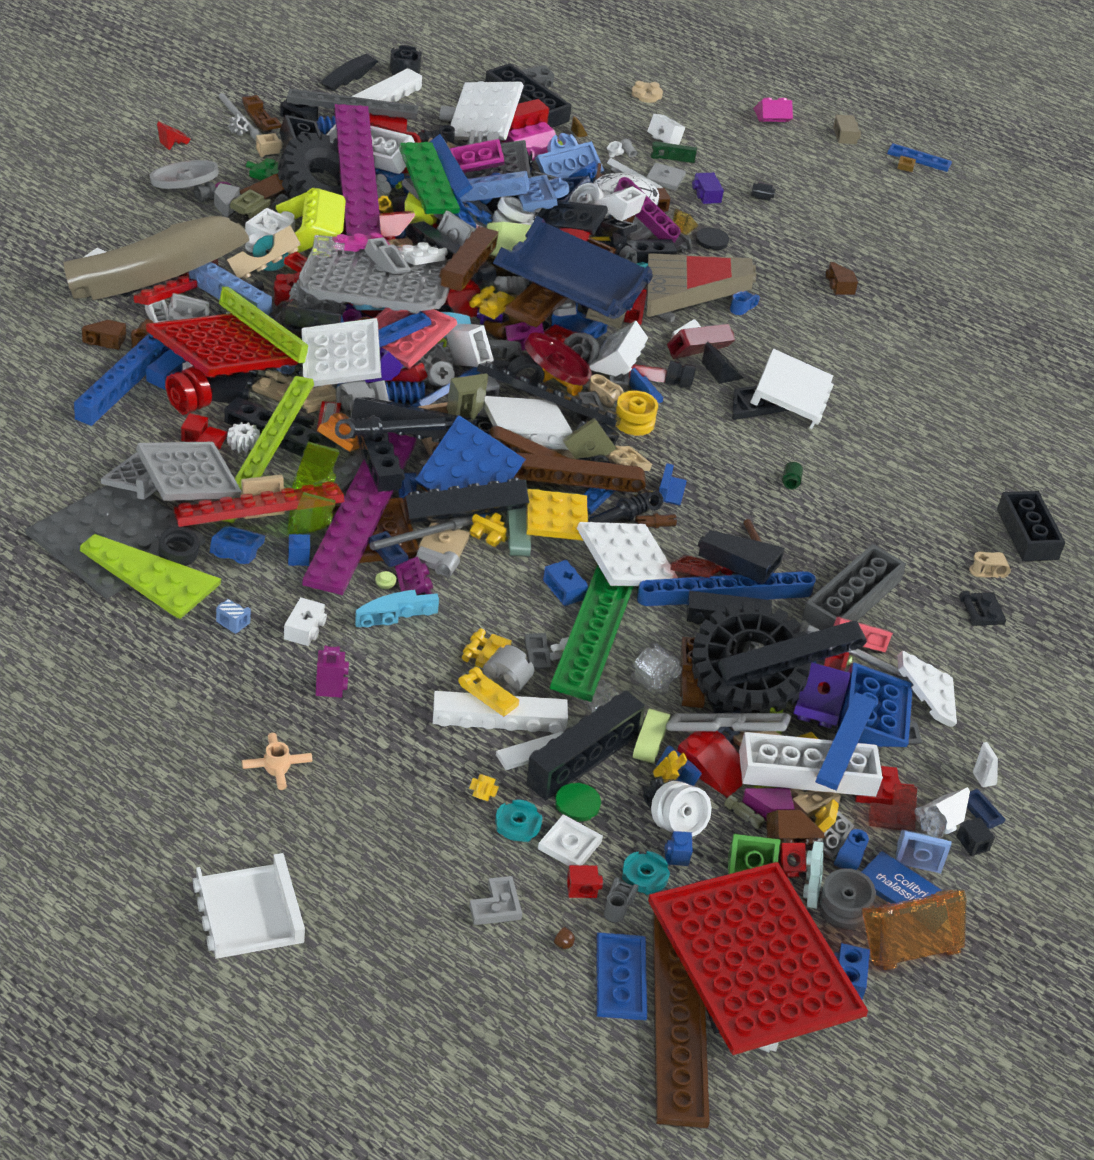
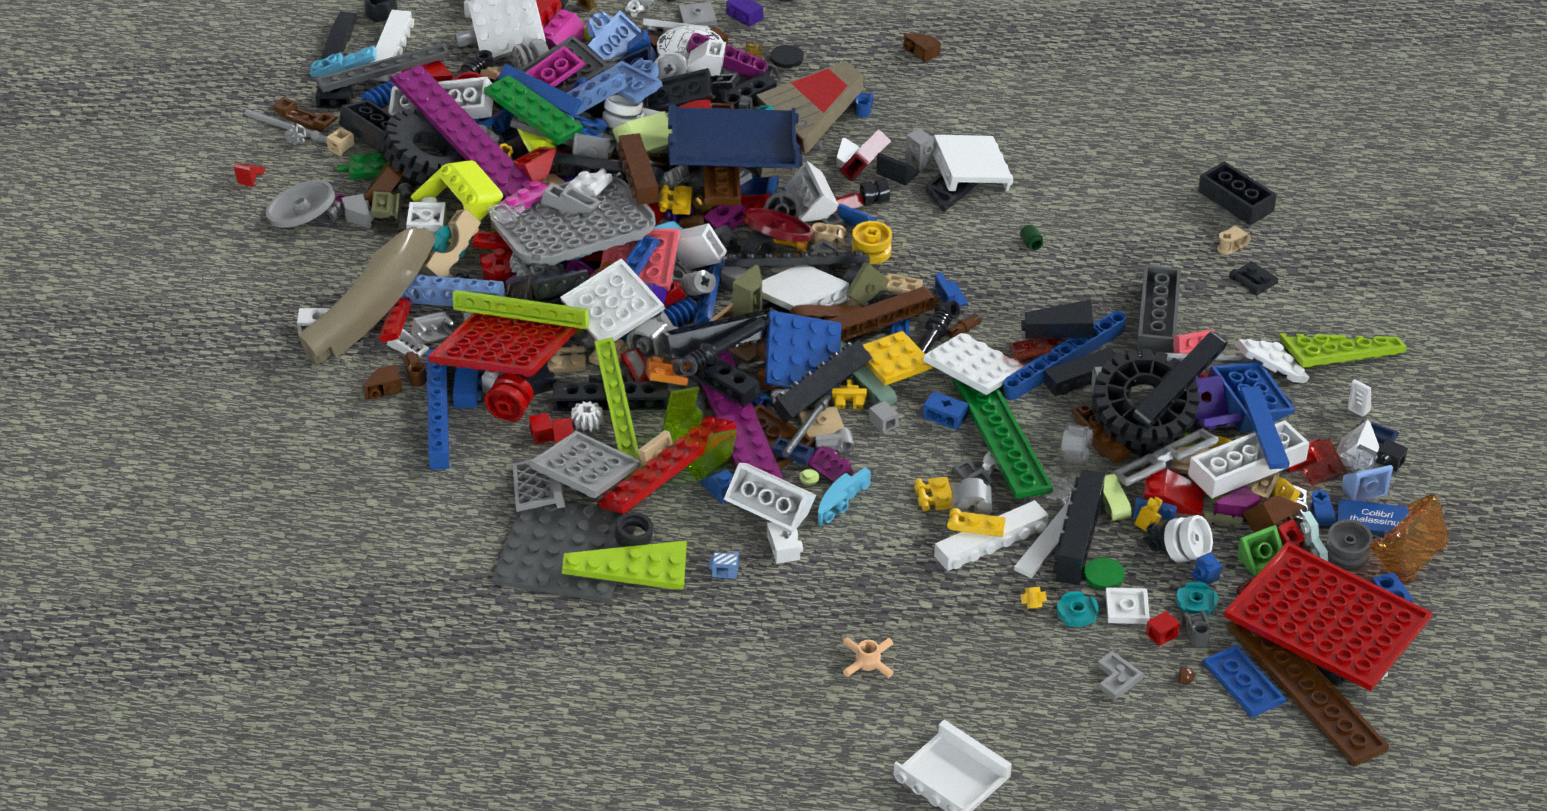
camera: 25 degrees left, 0 degrees up
(236, 544) = (671, 506): blue plate -> none
(318, 573) = (769, 496): none -> white slope
(328, 87) = (337, 62): none -> medium azure slope
(331, 672) = (848, 569): magenta brick -> none
(502, 561) = (883, 417): none -> light grey brick
(751, 530) = (1041, 299): reddish brown bar -> none
(752, 357) = (919, 149): none -> light grey brick
(1012, 711) = (1336, 348): none -> lime wing

